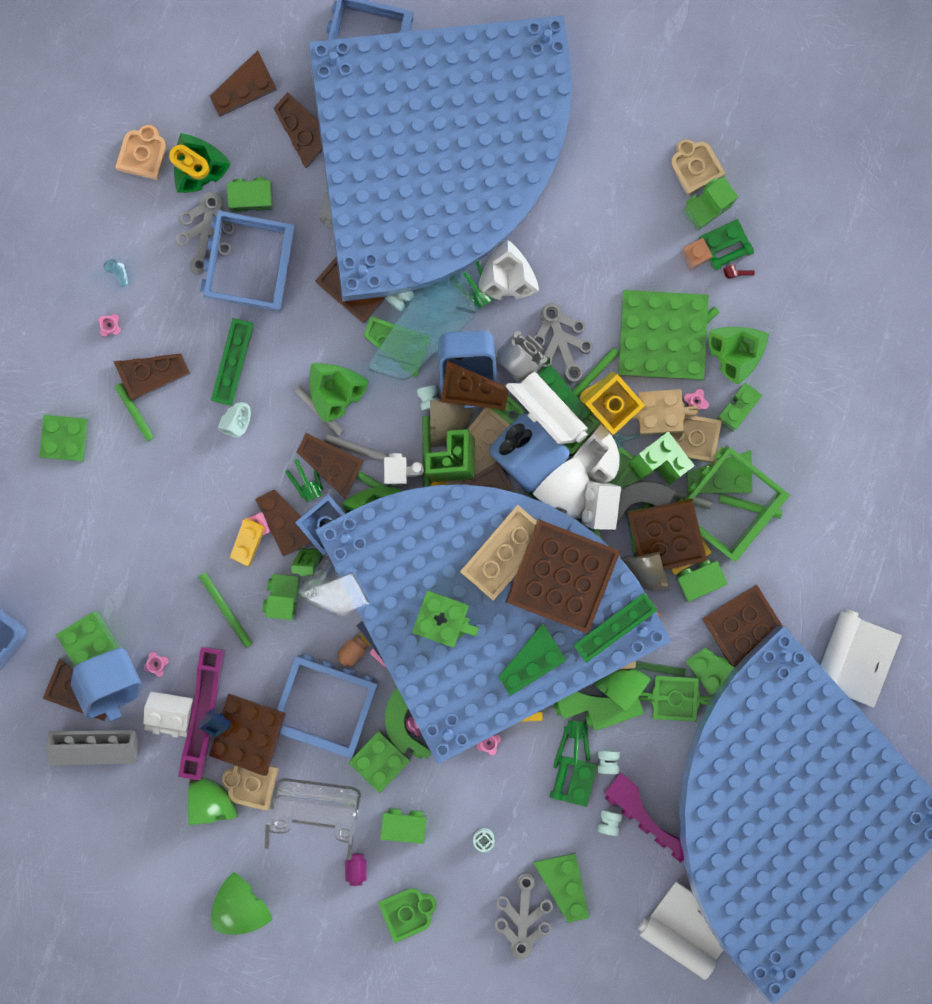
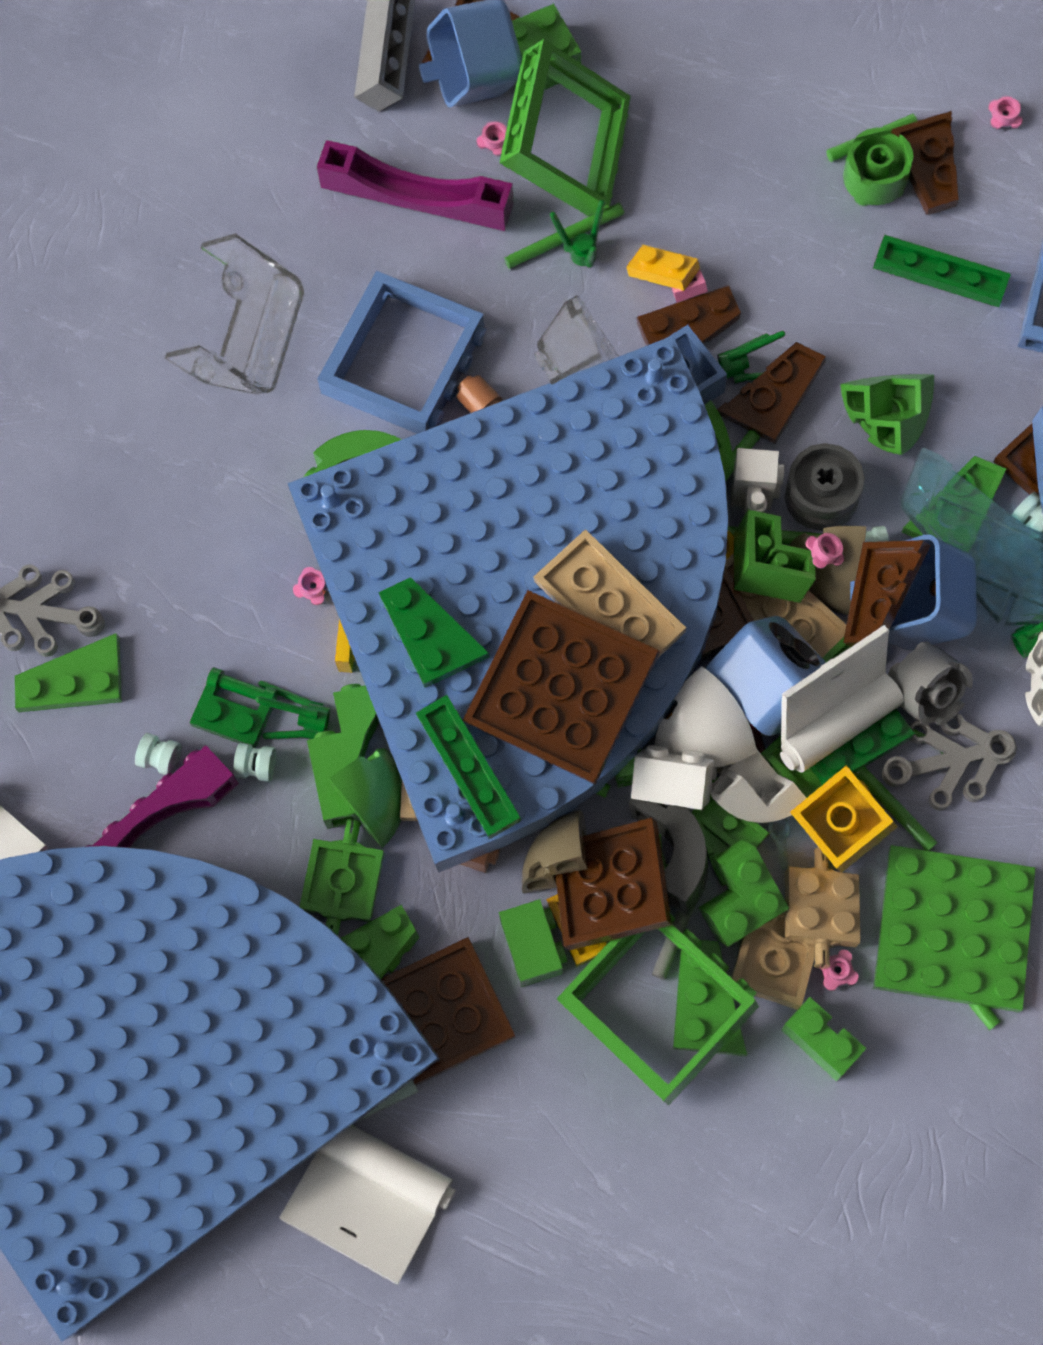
camera: 100 degrees right, 15 degrees down
(63, 438) = (839, 45): bright green plate -> none
(151, 401) = (877, 167): none -> bright green brick
(155, 641) = (537, 64): none -> bright green window
(167, 714) = (421, 140): white brick -> none
(209, 802) = (283, 184): bright green brick -> none
(214, 723) = (396, 195): dark blue tile -> none
(235, 420) = (852, 266): light aqua rock -> none
(235, 596) = (583, 245): none -> green plant
(237, 908) = (122, 210): bright green brick -> none
(249, 787) = (304, 246): tan plate -> none
(251, 735) = (374, 243): reddish brown plate -> none
(282, 598) = (562, 284): bright green brick -> none
(306, 561) = (621, 332): bright green plate -> none
(308, 401) = (837, 403): light grey piece -> none
(355, 447) = (799, 428): light grey piece -> none
(356, 870) = (151, 376): magenta brick -> none
(379, 761) = (306, 419): bright green brick -> none
(392, 415) = (824, 486): none -> dark grey wheel
(403, 827) = (202, 449): bright green brick -> none
(407, 913) = (74, 444): bright green plate -> none
(444, 420) = (825, 550): none -> bright pink plate
(448, 631) = (533, 493): bright green hinge -> none
(486, 838) = (169, 567): light aqua wheel -> none
(669, 671) = (388, 893): bright green piece -> none
(737, 350) = (922, 1049): bright green brick -> none
(744, 504) = (651, 1039): bright green piece -> none

